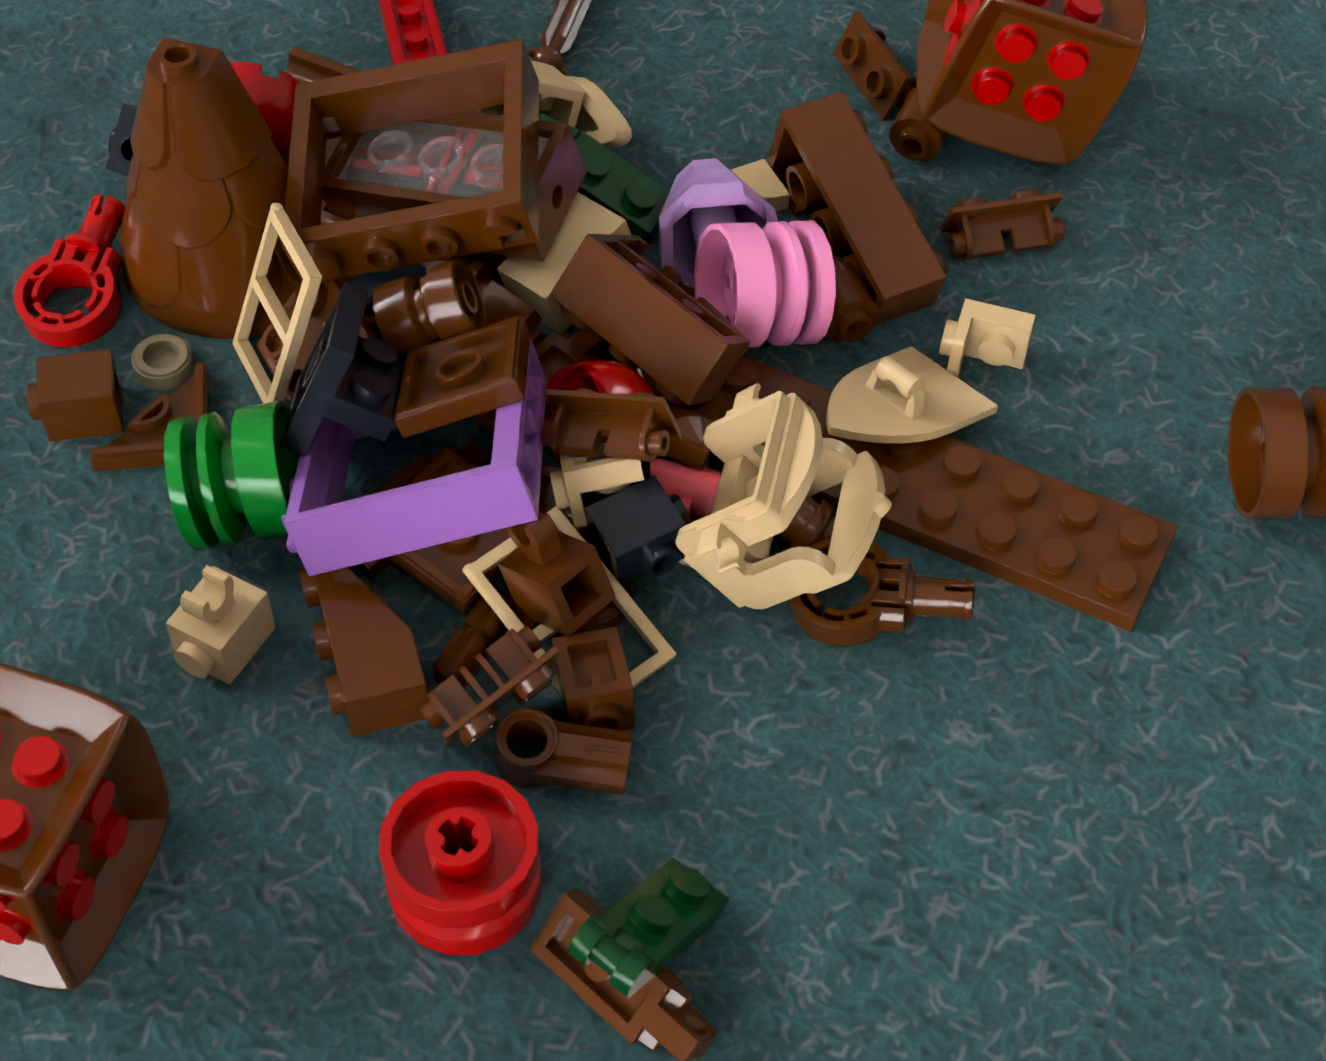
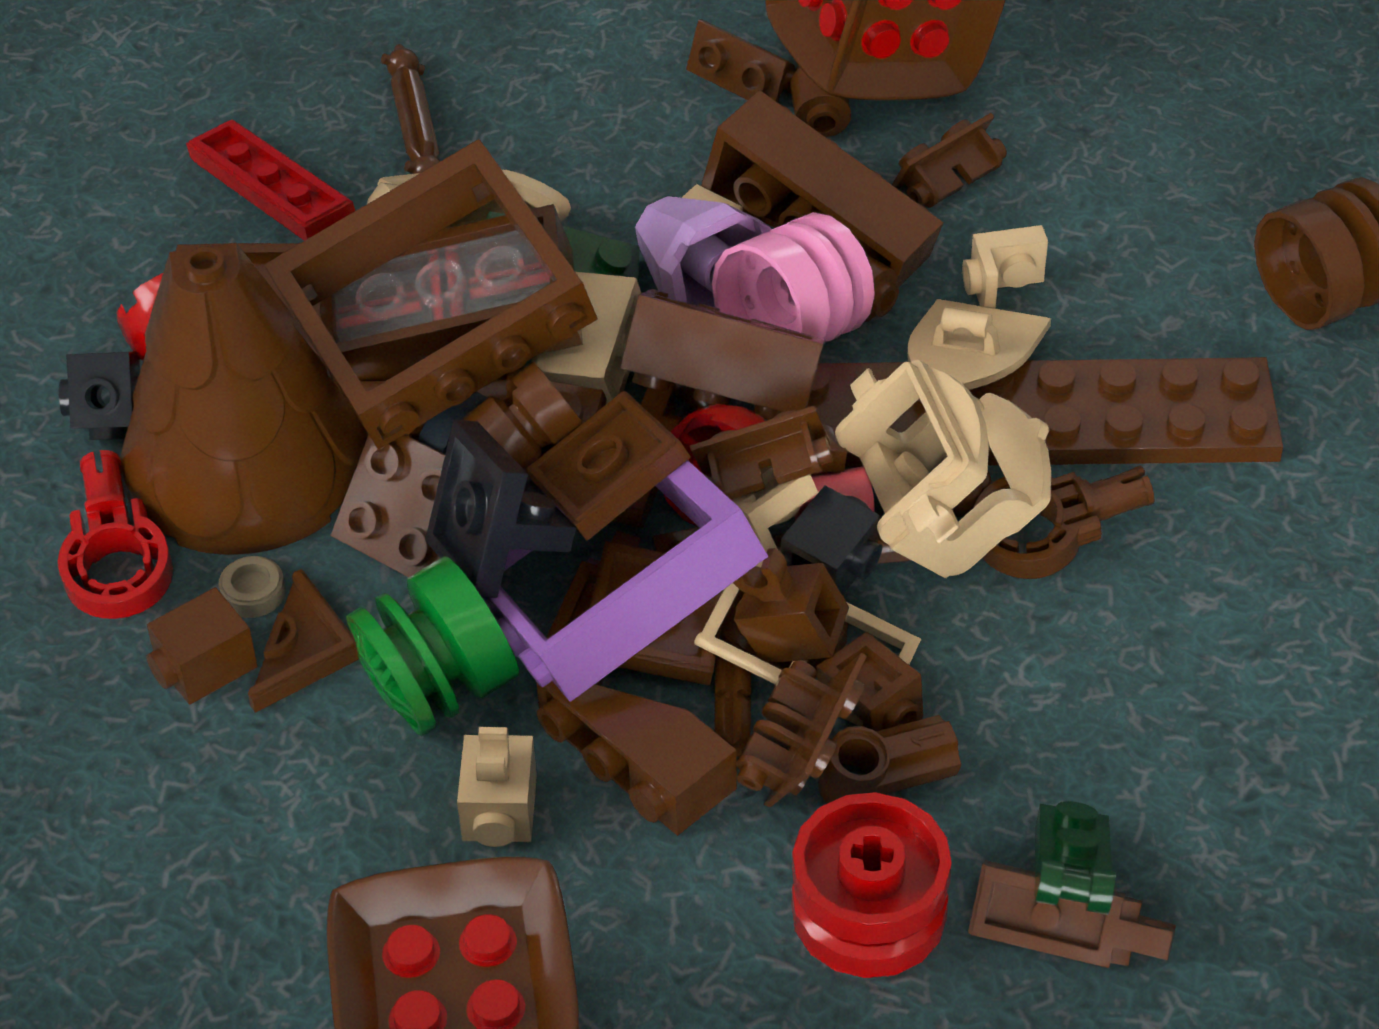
camera: 25 degrees left, 5 degrees down
(259, 288) = (398, 502): tan window -> none

